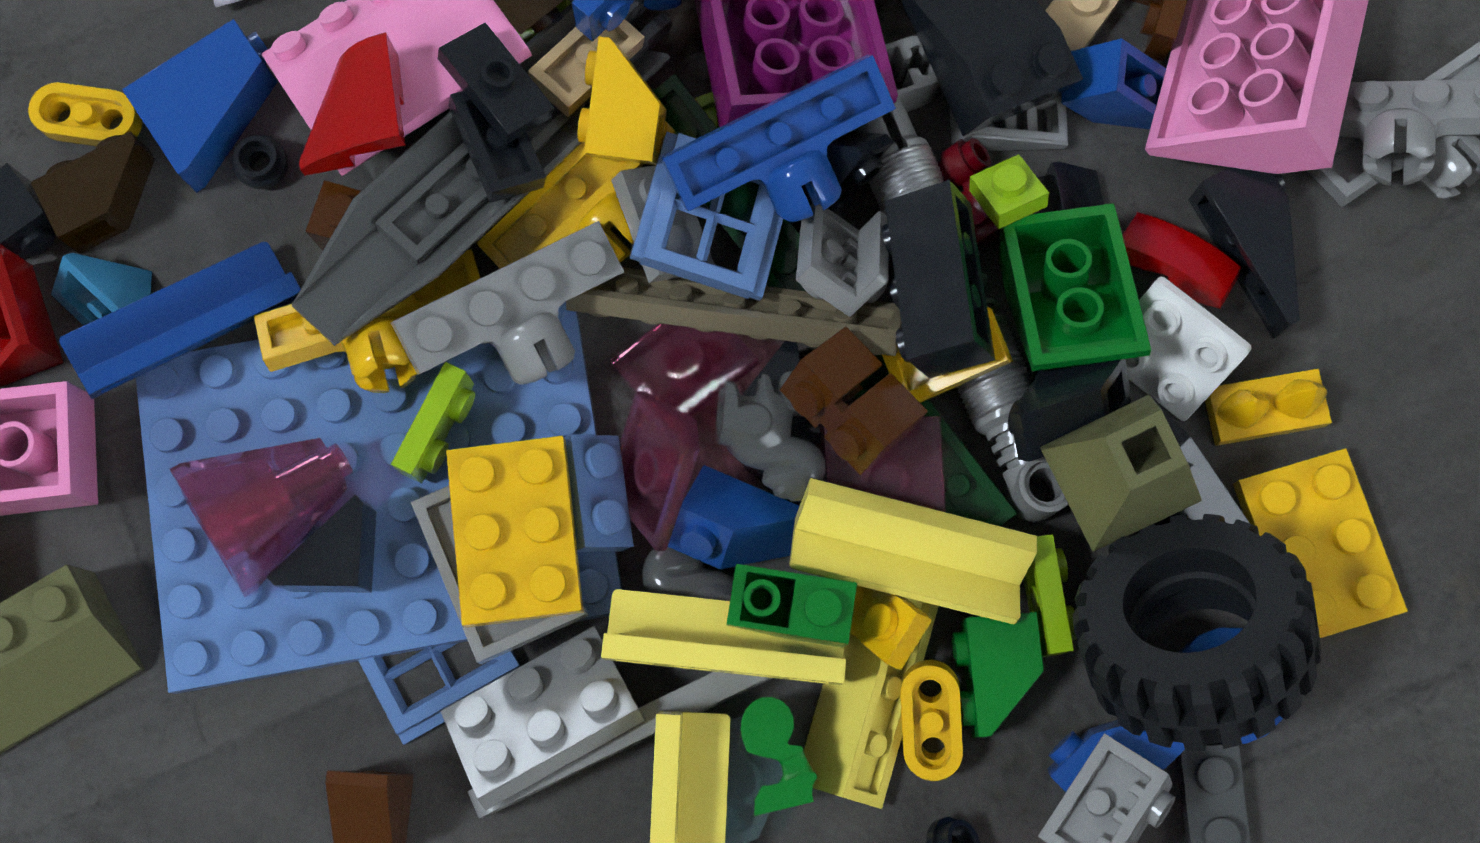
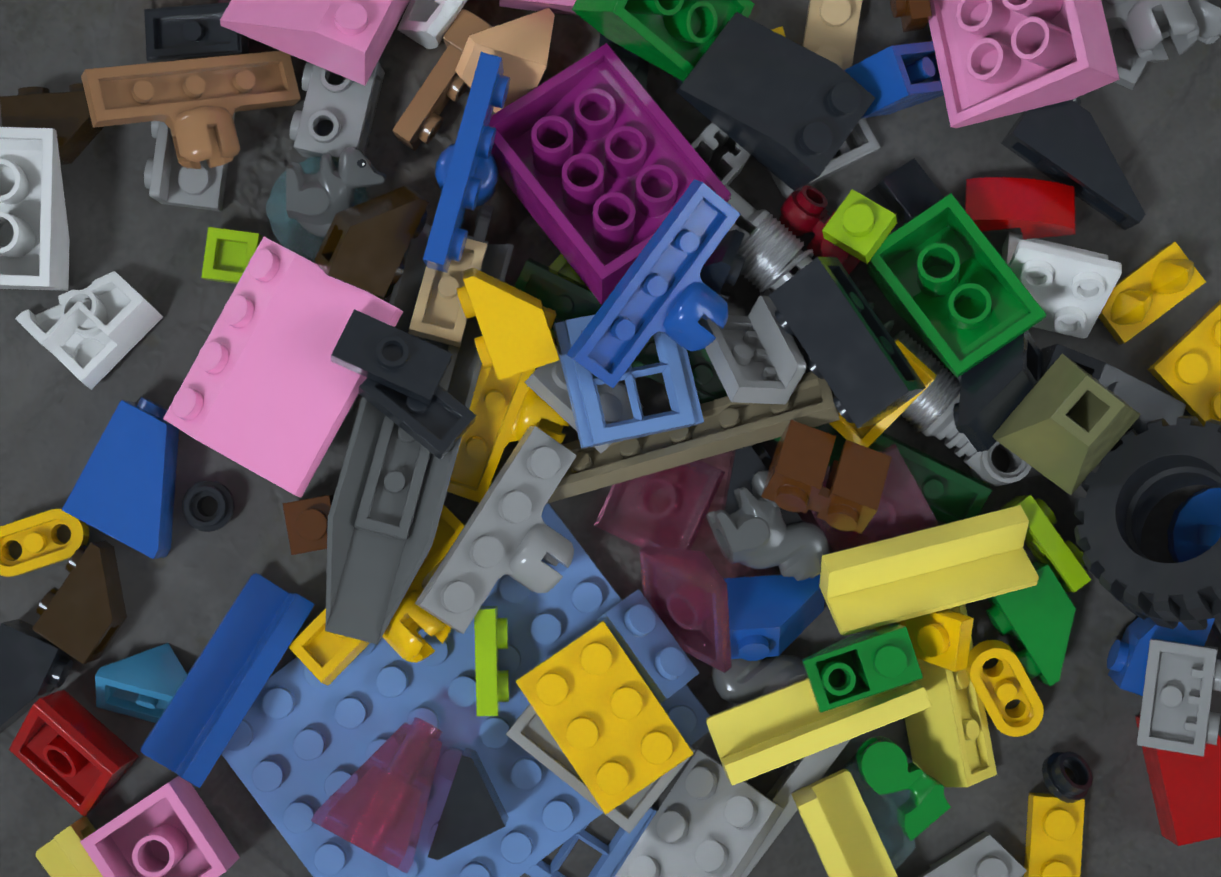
camera: 30 degrees left, 10 degrees up
(358, 109) = (287, 437): red slope -> none

